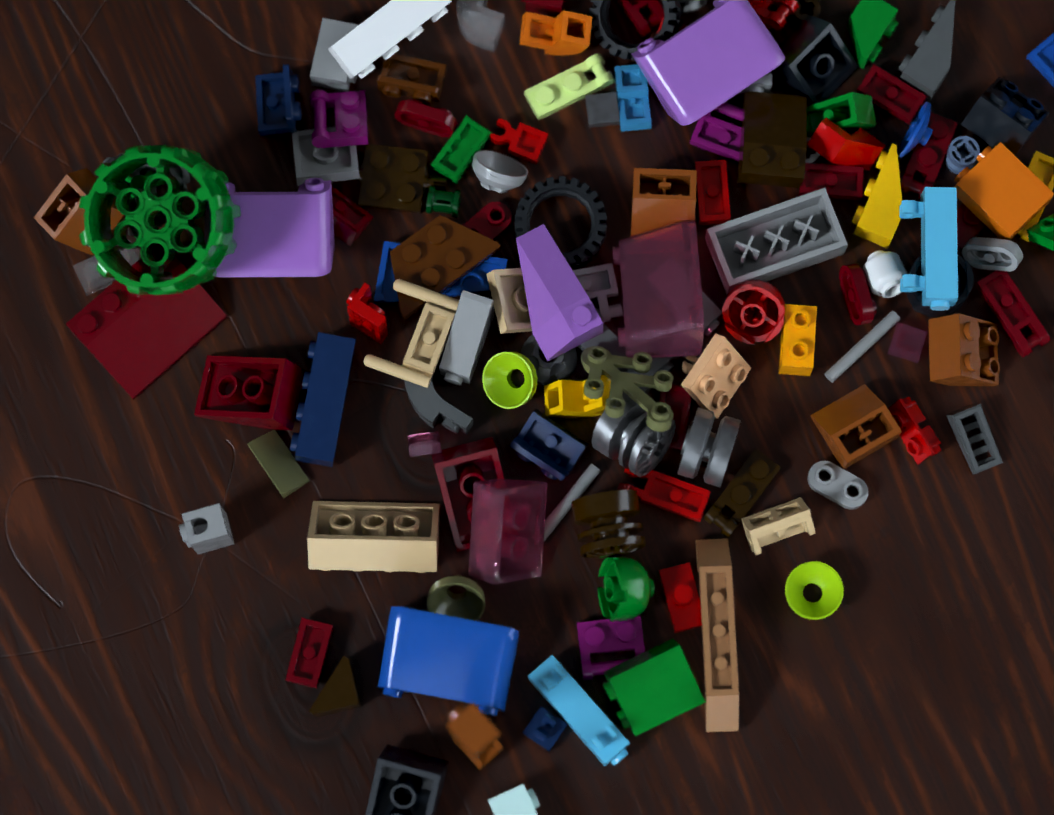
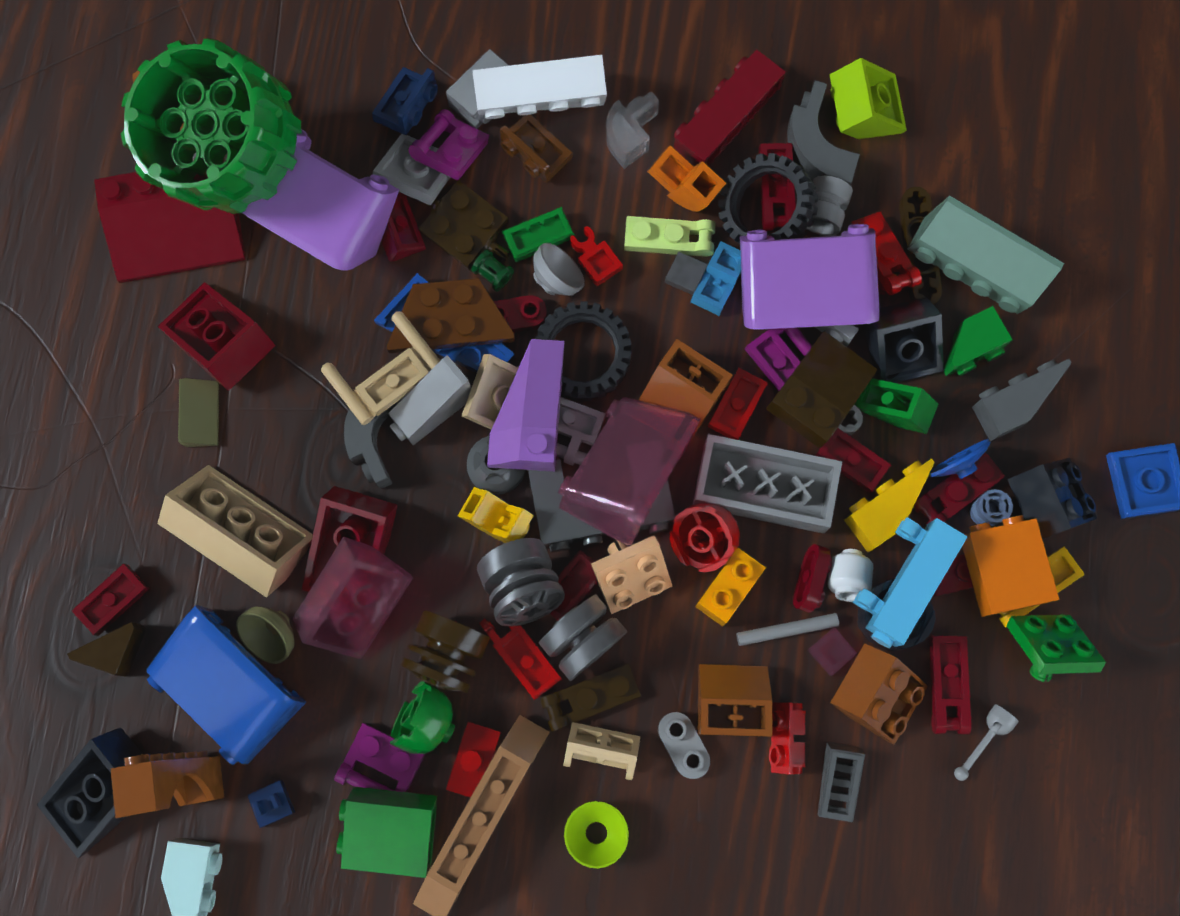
camera: 30 degrees right, 0 degrees up
(206, 529) = (87, 428): light grey brick -> none
(324, 400) = (272, 380): dark blue brick -> none
(366, 315) = (355, 317): red bracket -> none
(424, 444) = (334, 474): clear pink tile -> none
(425, 118) = (524, 189): dark red plate -> none
(498, 383) = (436, 461): lime piece -> none
(548, 446) = (441, 545): dark blue bracket -> none
(566, 503) = (432, 604): light grey bar -> none
(579, 712) = (309, 810): medium azure brick -> none
(600, 361) = (532, 496): olive plant -> none
(845, 149) = (882, 436): red slope -> none
(892, 94) = (959, 414): dark red plate -> none
(992, 254) = (964, 619): light grey plate -> none

